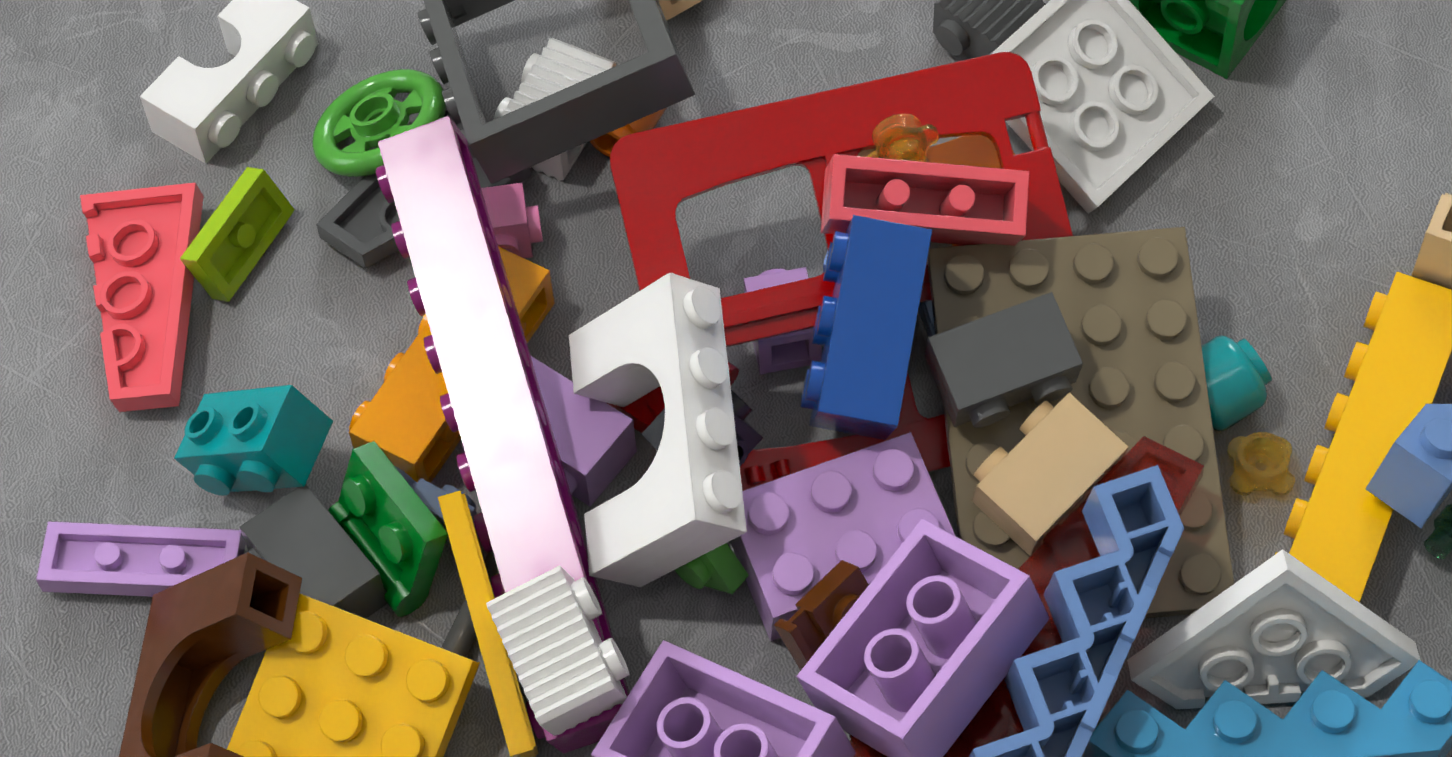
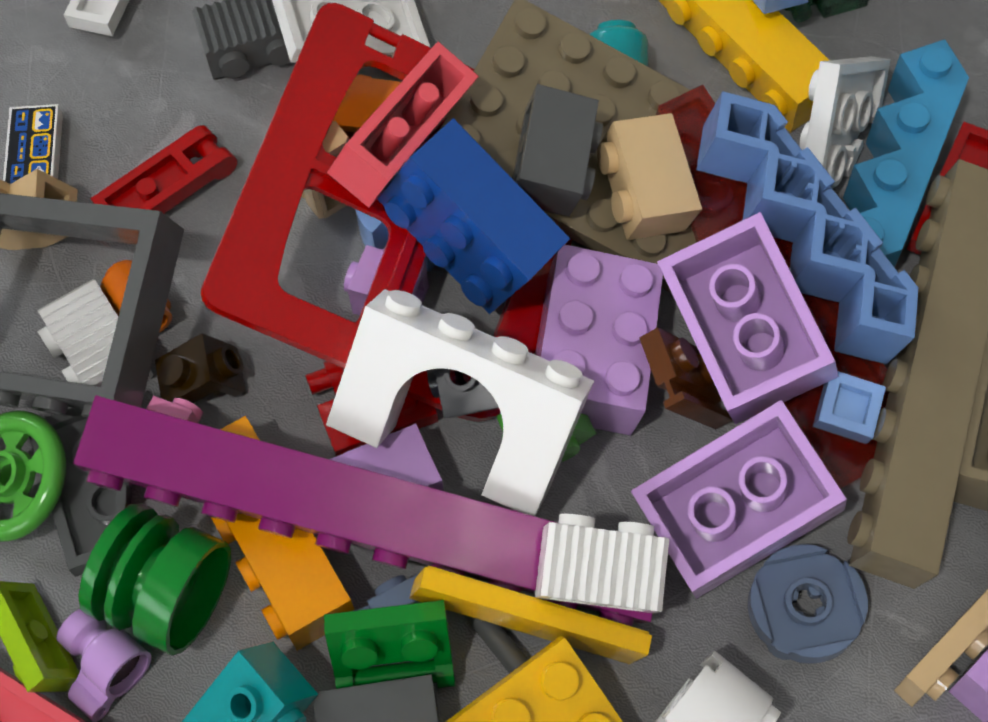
camera: 60 degrees left, 5 degrees up
(253, 308) = (109, 663): none -> lavender piece
(339, 293) = (154, 578): none -> green wheel
(585, 211) = (200, 369): none -> dark brown bracket
(771, 56) = (170, 174): none -> red plate
(903, 138) = (347, 110): clear yellow plate -> none
(1266, 449) = (690, 62): clear yellow plate -> none

